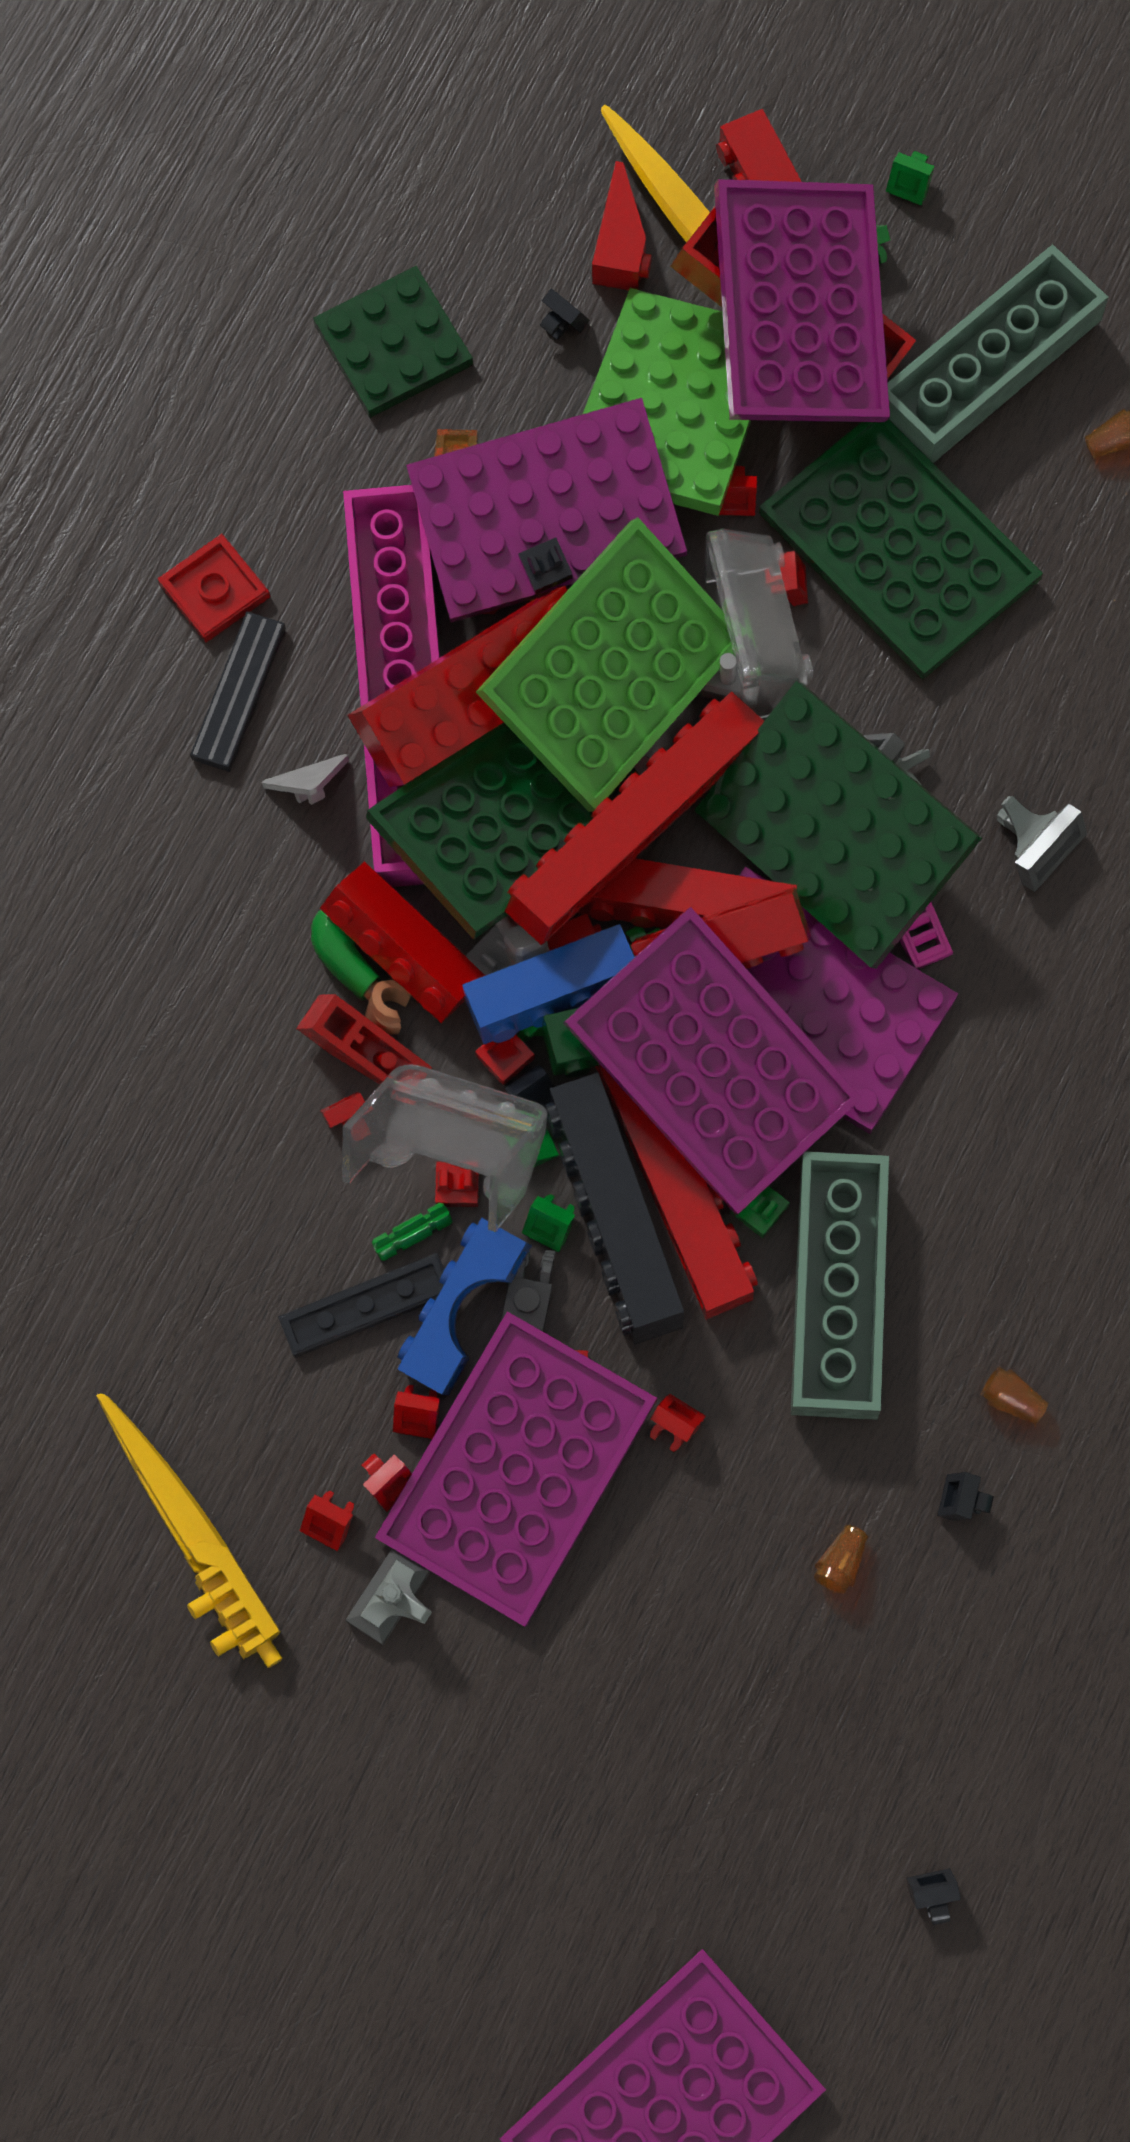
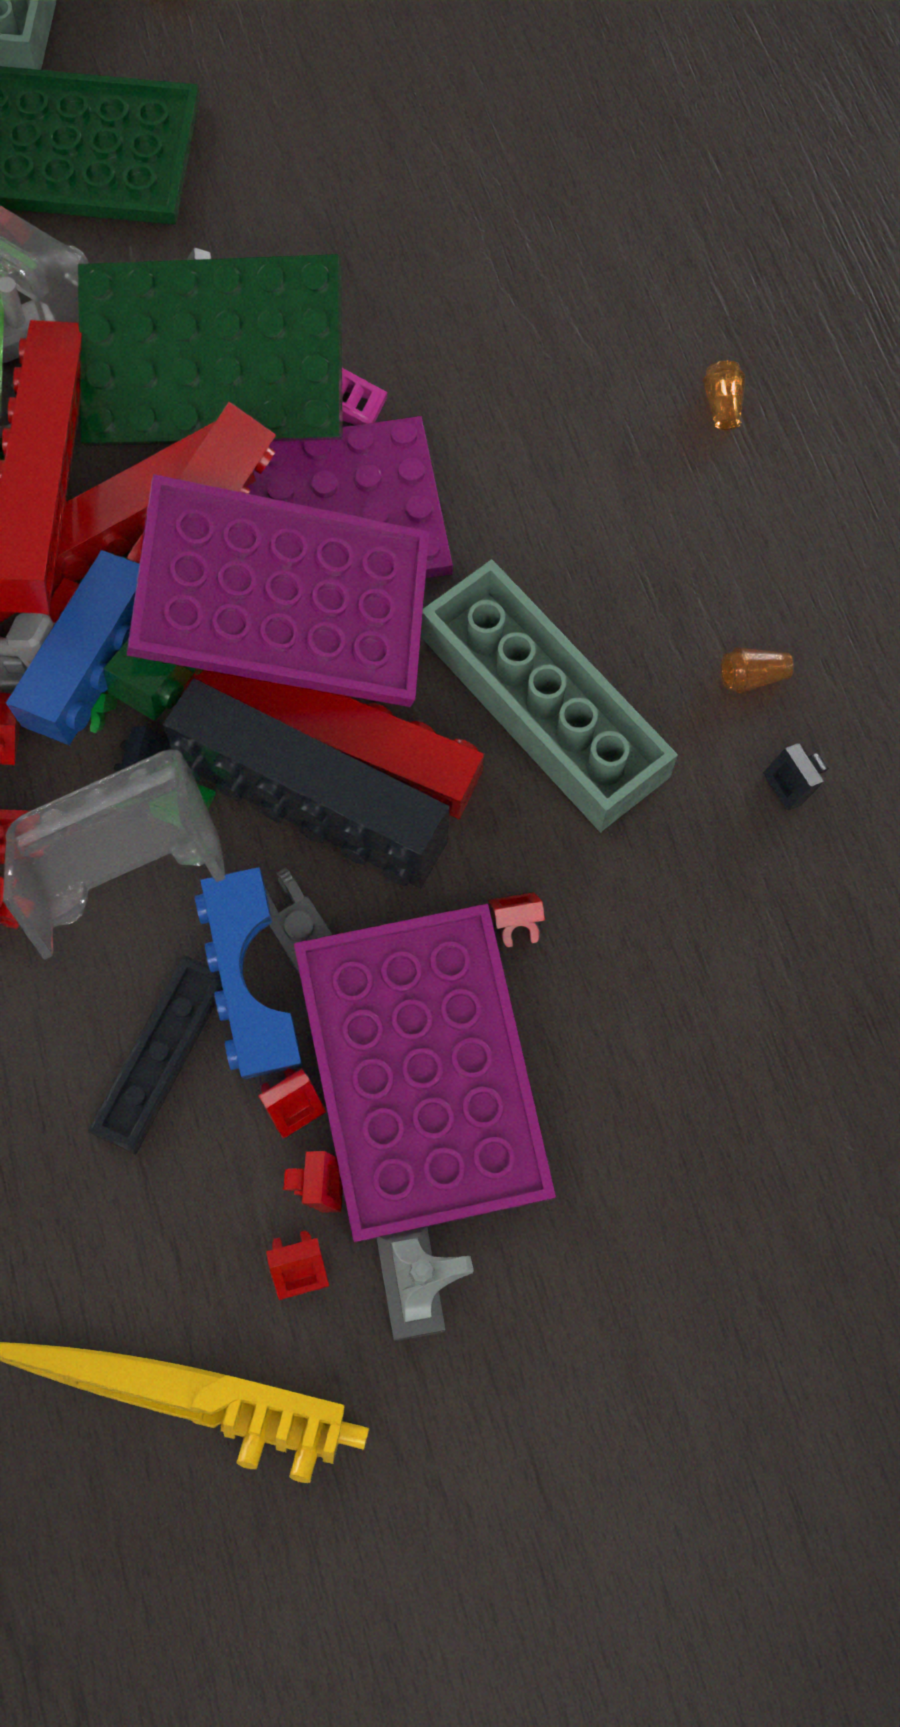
camera: 50 degrees left, 5 degrees down
(412, 1231) = (144, 957): green axle -> none
(456, 1186) = (149, 887): red tile -> none
(505, 1058) = (96, 746): red tile -> none
(548, 1222) = (259, 846): green tile -> none
(763, 1211) = (428, 699): green tile -> none
(841, 1561) = (754, 908): clear orange cone -> none
(1041, 839) = (377, 261): dark grey piece -> none

